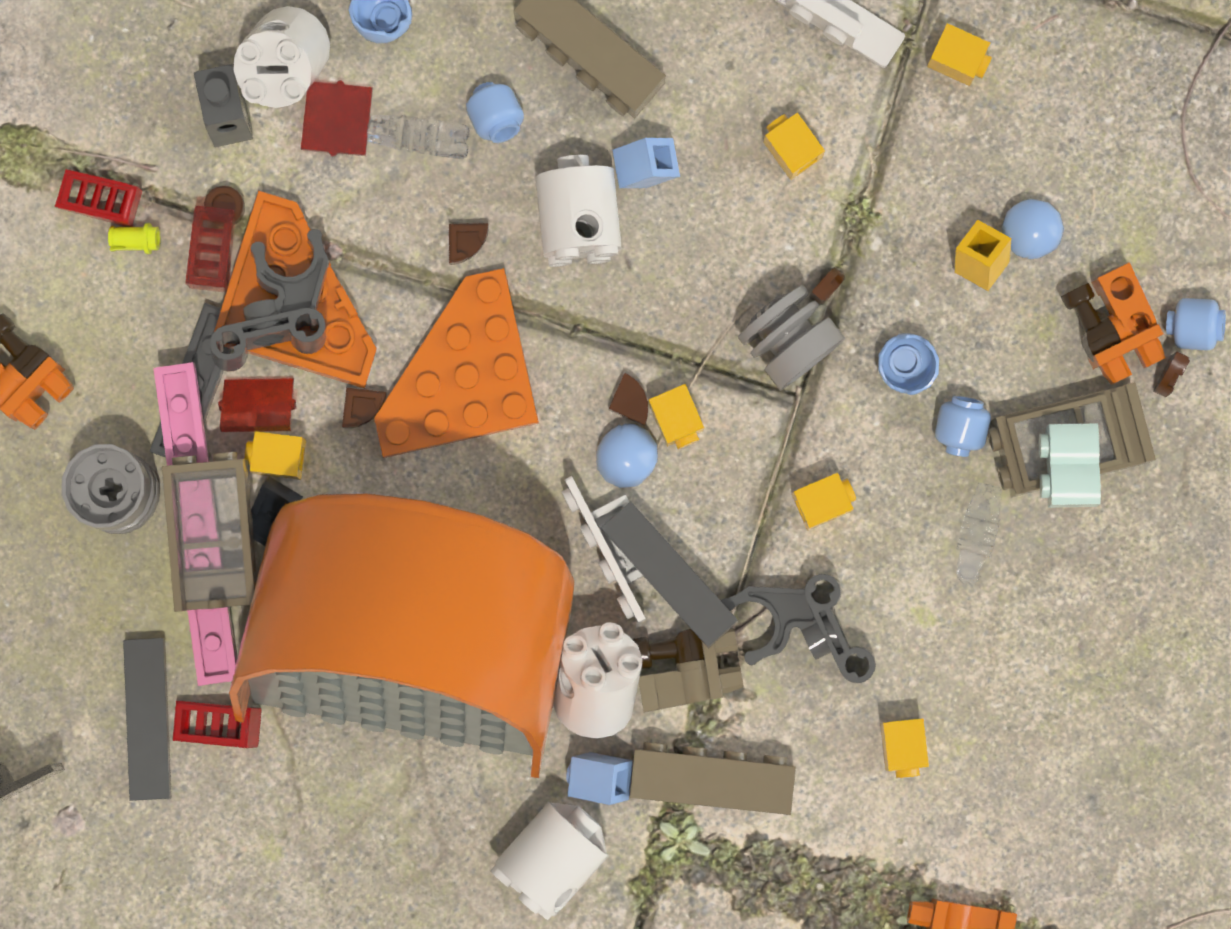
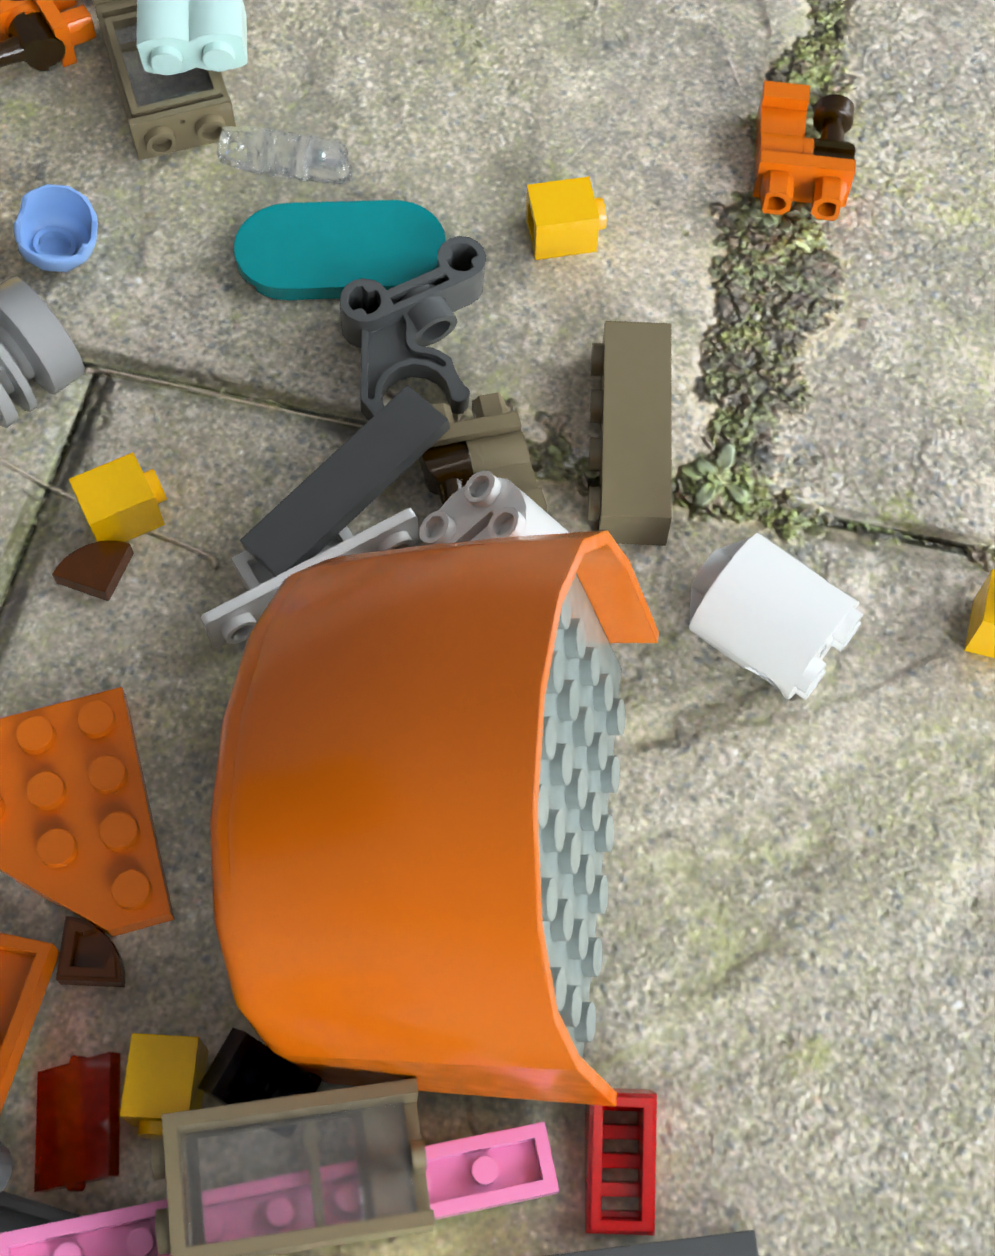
camera: 95 degrees left, 20 degrees down
(599, 778) = (655, 559): light blue brick -> none
(626, 455) = (175, 568): light blue hair -> none
(824, 500) = (241, 321): yellow brick -> none
(891, 575) = (324, 246): none -> teal tile
(962, 425) = (141, 172): light blue head -> none

